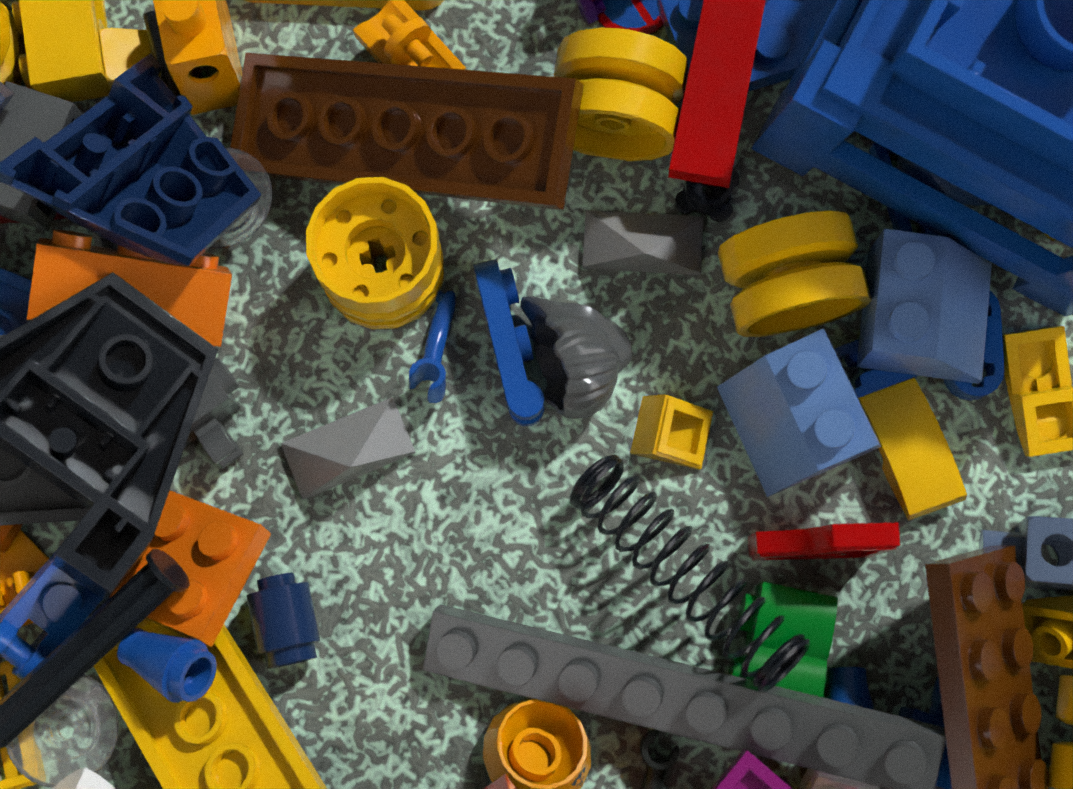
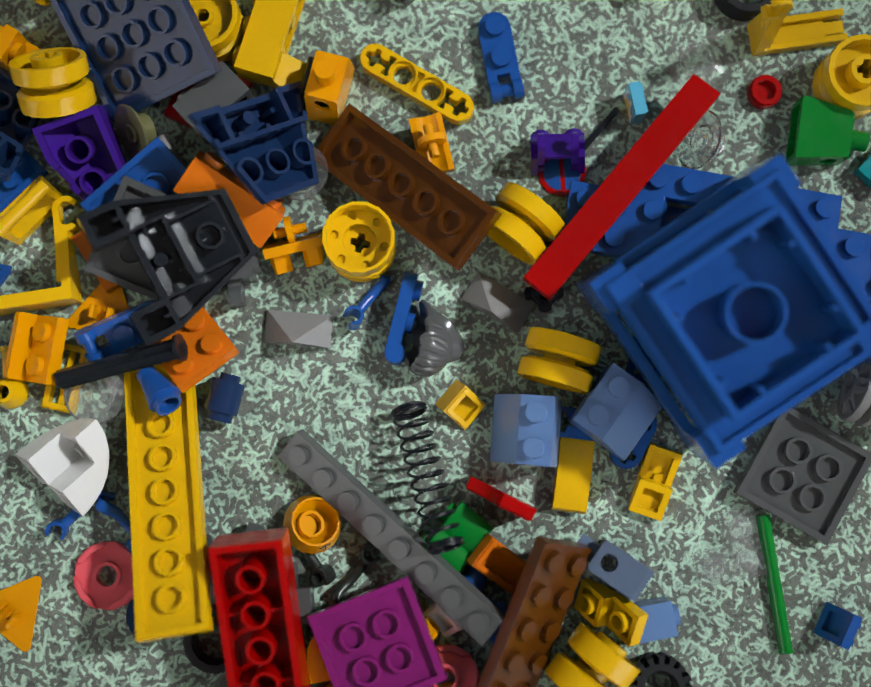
camera: 25 degrees right, 5 degrees up
(254, 340) = (280, 252): none -> light orange hips
(881, 652) = (497, 563): none -> orange tile

